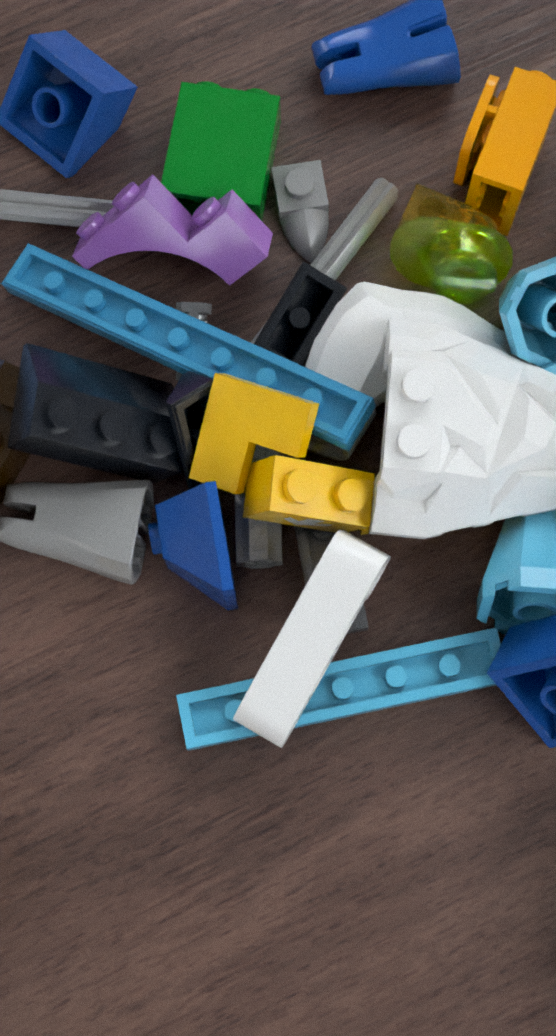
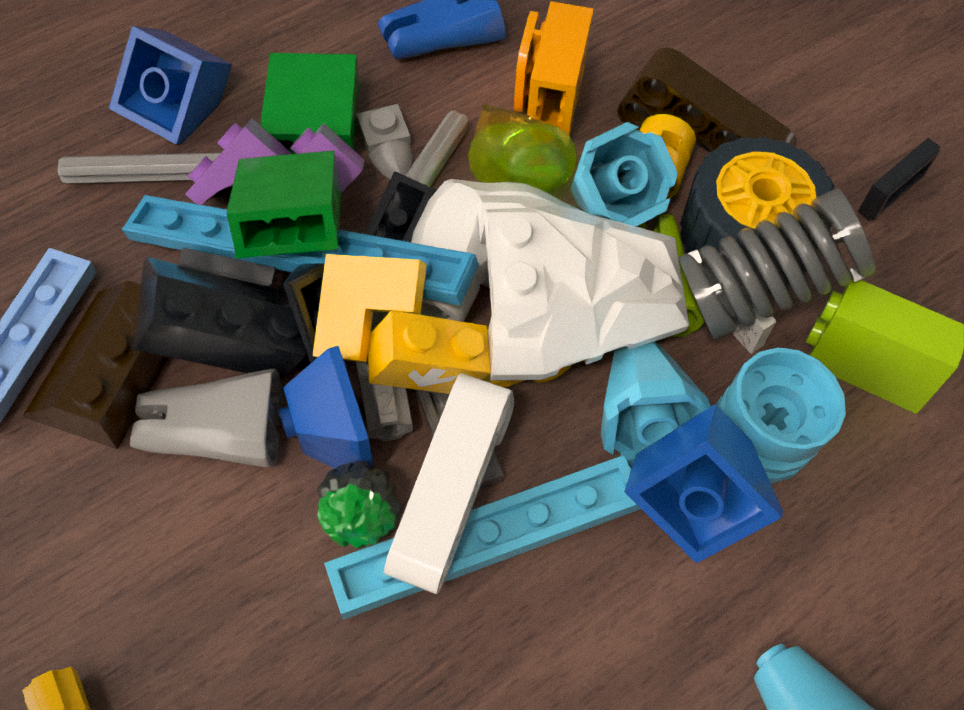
camera: 15 degrees left, 15 degrees down
(111, 353) = (234, 268): none -> black tile
(179, 299) = (285, 204): none -> green brick
(216, 641) = (357, 504): none -> green piece

